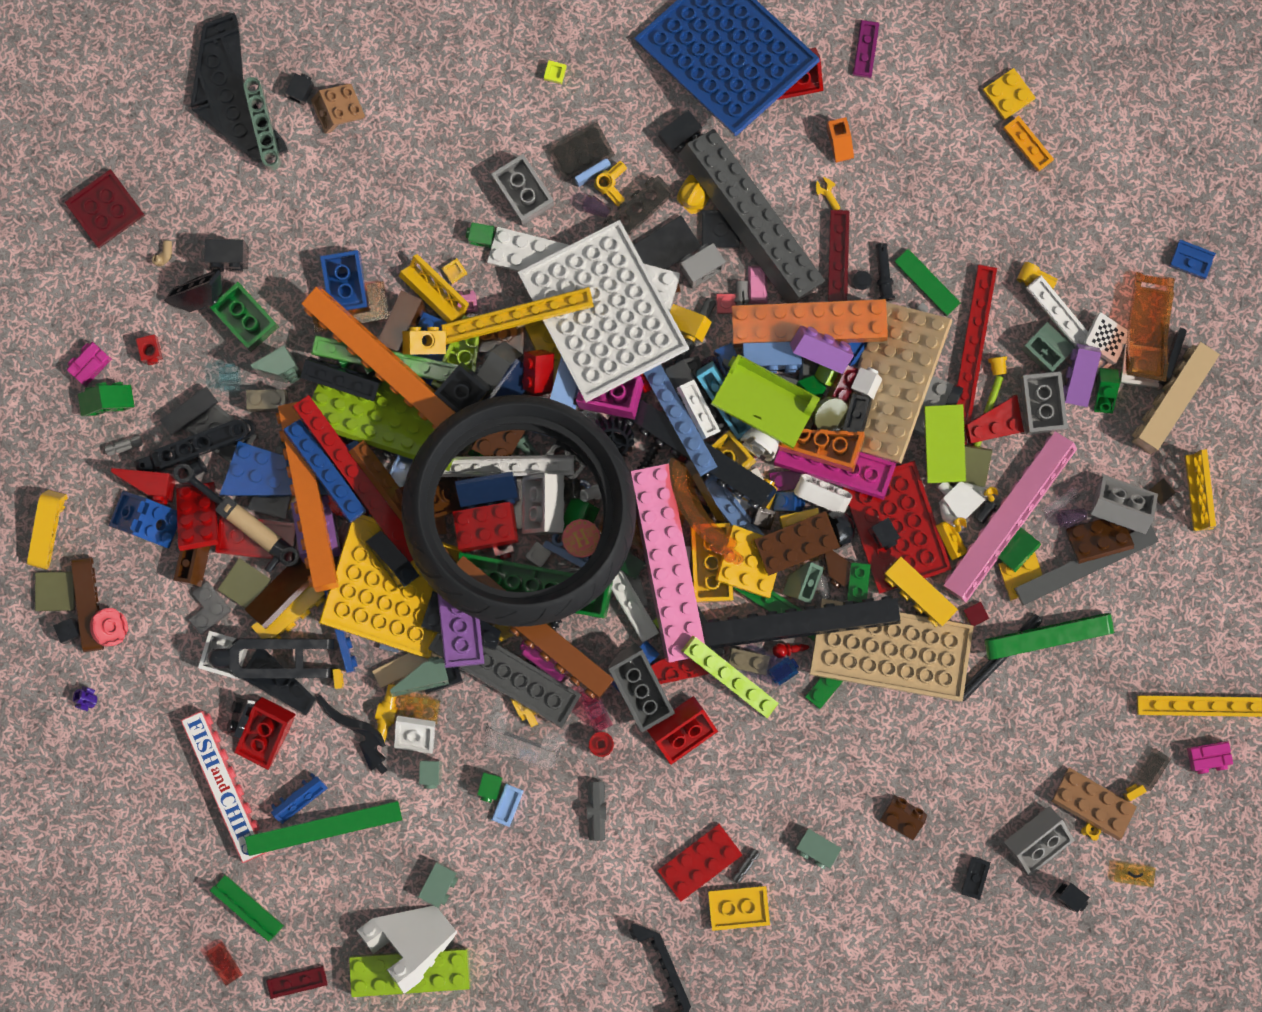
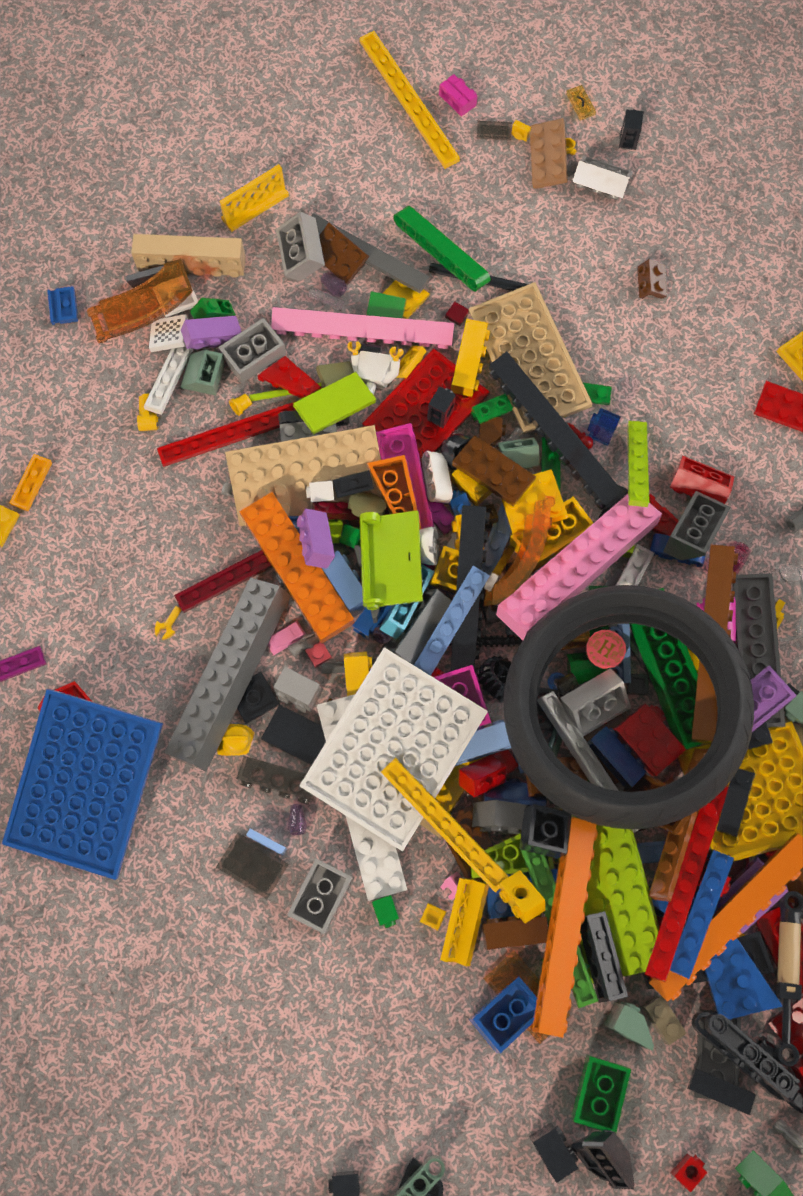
camera: 120 degrees left, 10 degrees down
(230, 378) = (665, 1070): clear light blue brick -> none
(337, 106) = (342, 1133): medium nougat bracket -> none
(555, 72) = (189, 936): neon yellow plate -> none
(590, 493) = (559, 666): white pin -> none
(601, 744) = (760, 536): red wheel -> none
(610, 176) = (261, 823): yellow axle -> none
(680, 132) = (184, 784): black brick -> none
(698, 409) = (432, 612): white plate -> none
(745, 865) = (772, 374): dark grey axle -> none
(749, 661) = (612, 459): dark tan brick -> none
(818, 848) = (721, 327): sand green brick -> none
(840, 139) = (112, 638): orange slope -> none
(862, 280) = (230, 551): black plate -> none
(884, 282) = (221, 531): black pin -> none
(927, 282) = (201, 499): green tile -> none
(975, 878) = (662, 205): black plate -> none
(1163, 490) = (269, 232): dark brown tile -> none

